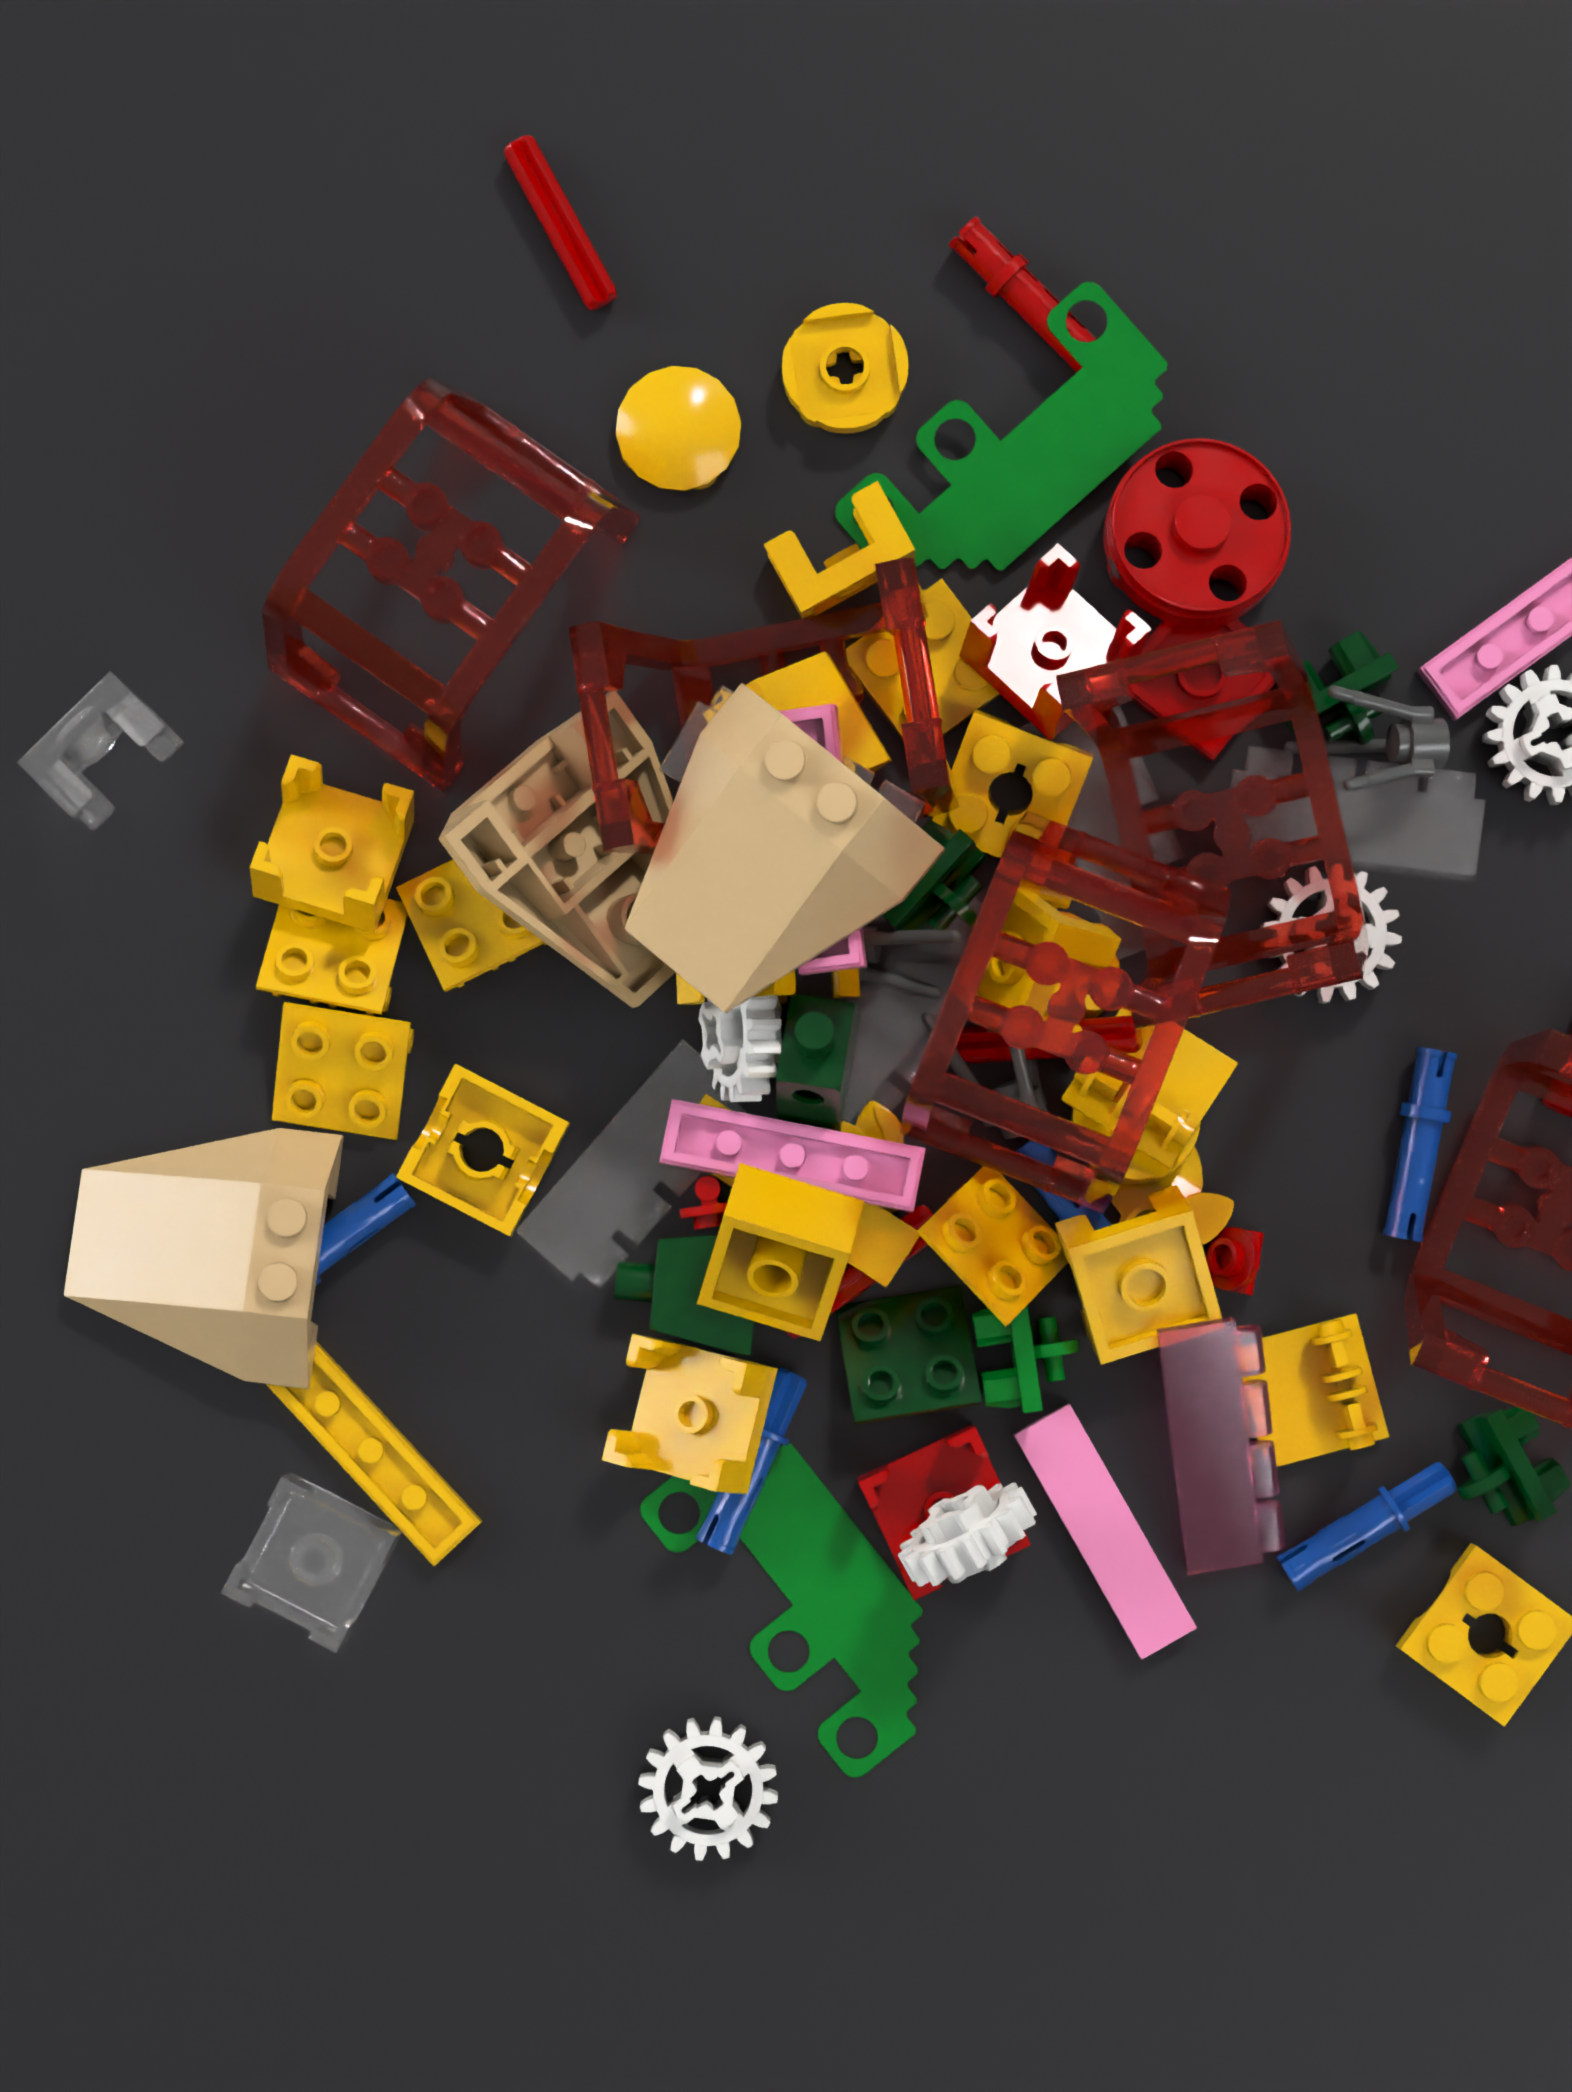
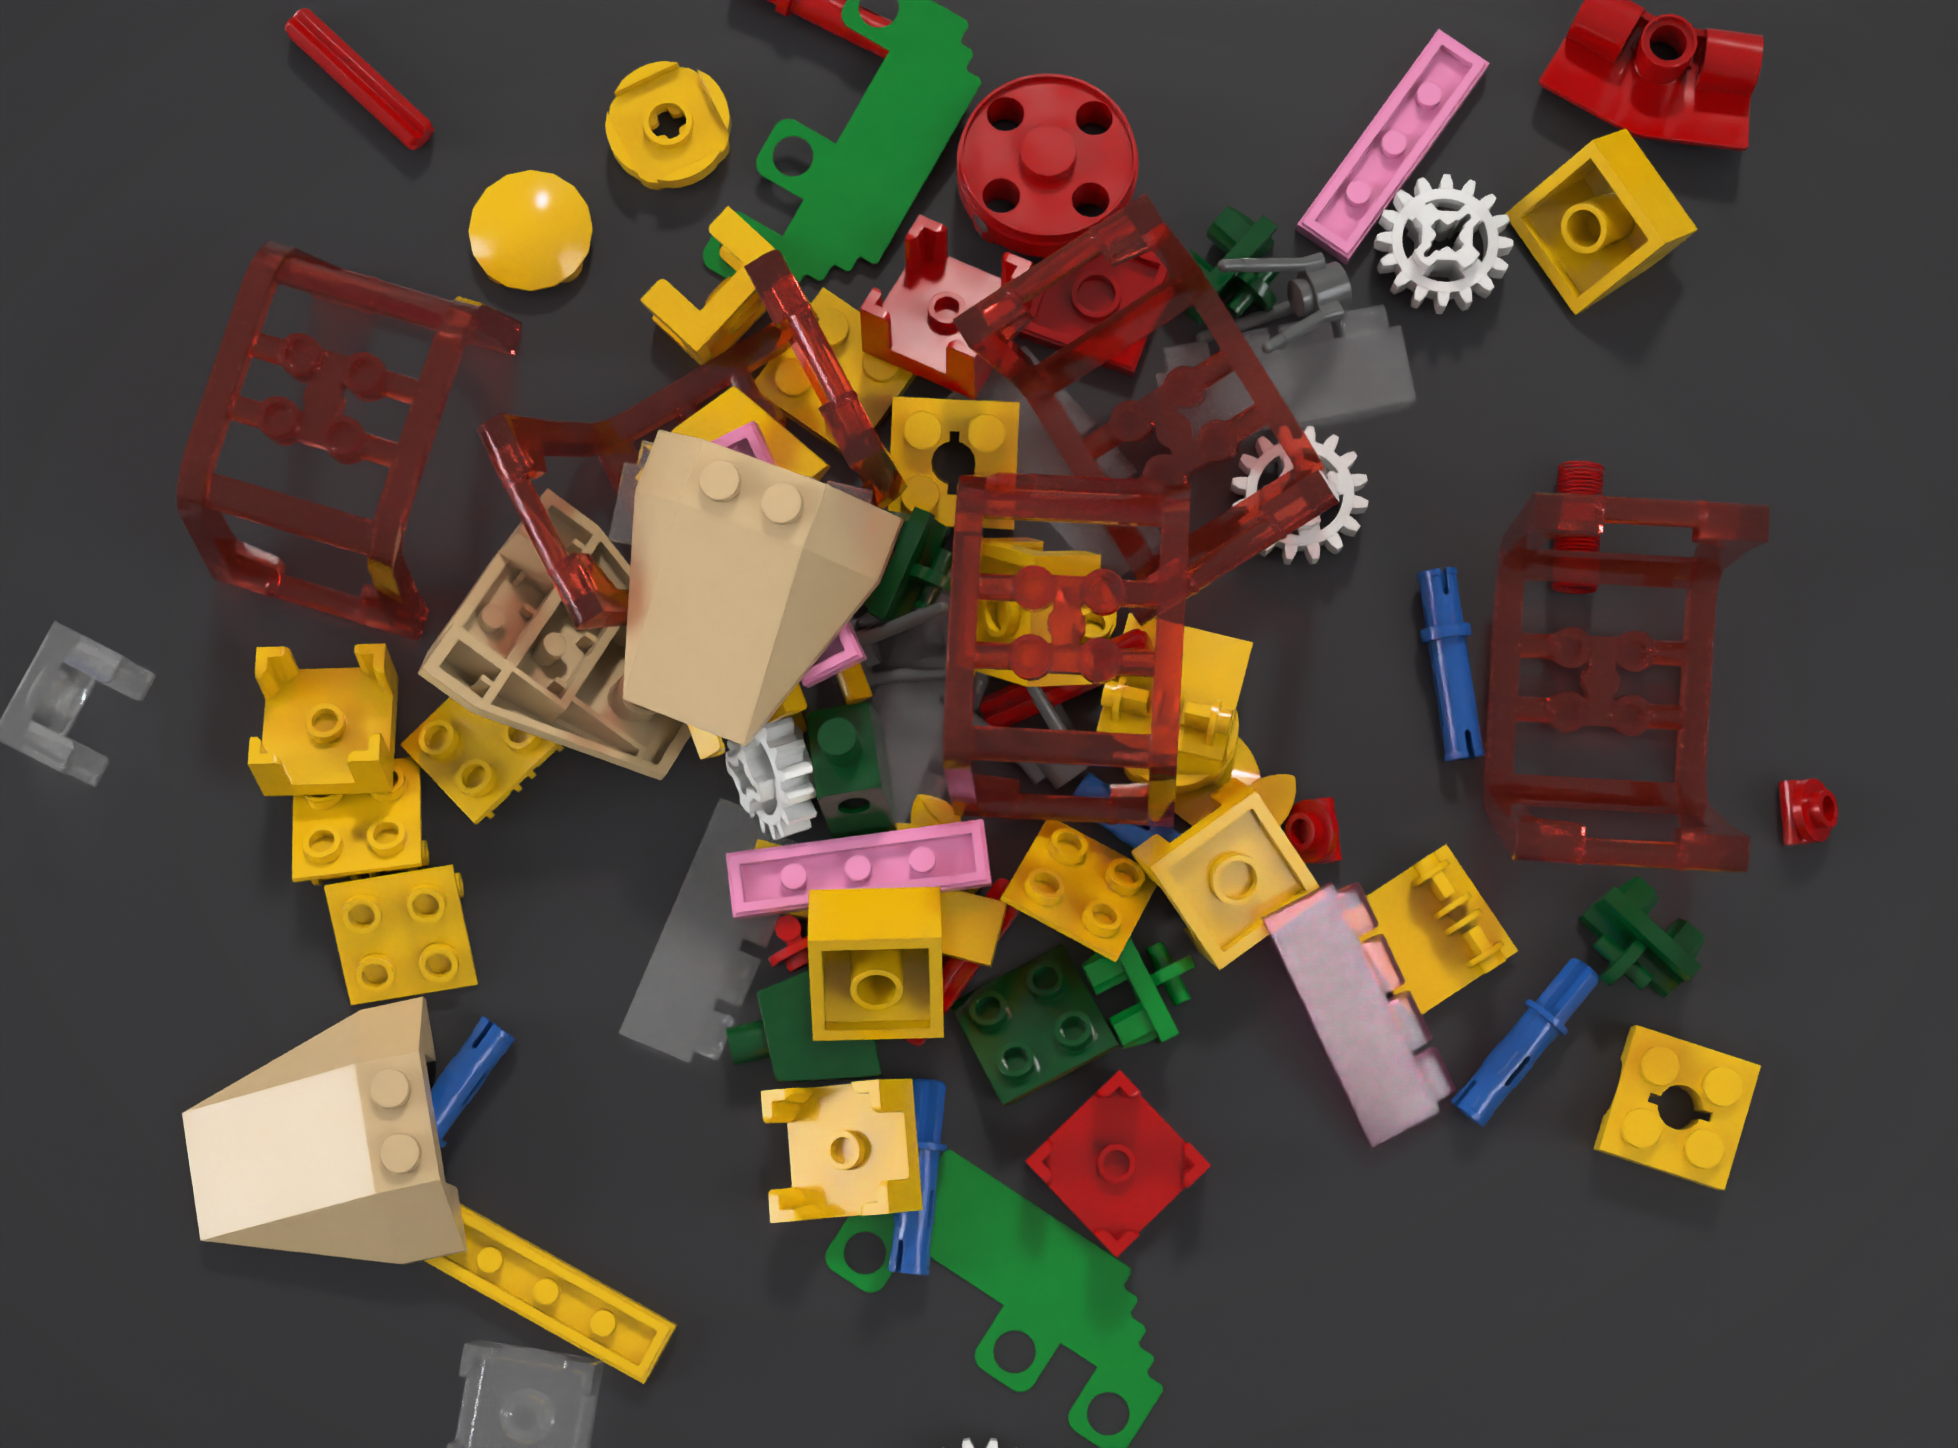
camera: 15 degrees left, 5 degrees down
(527, 1135) = (591, 1001): yellow brick -> none
(967, 1534) = (1145, 1174): white gear -> none
(1105, 1531) = (1279, 1132): bright pink tile -> none

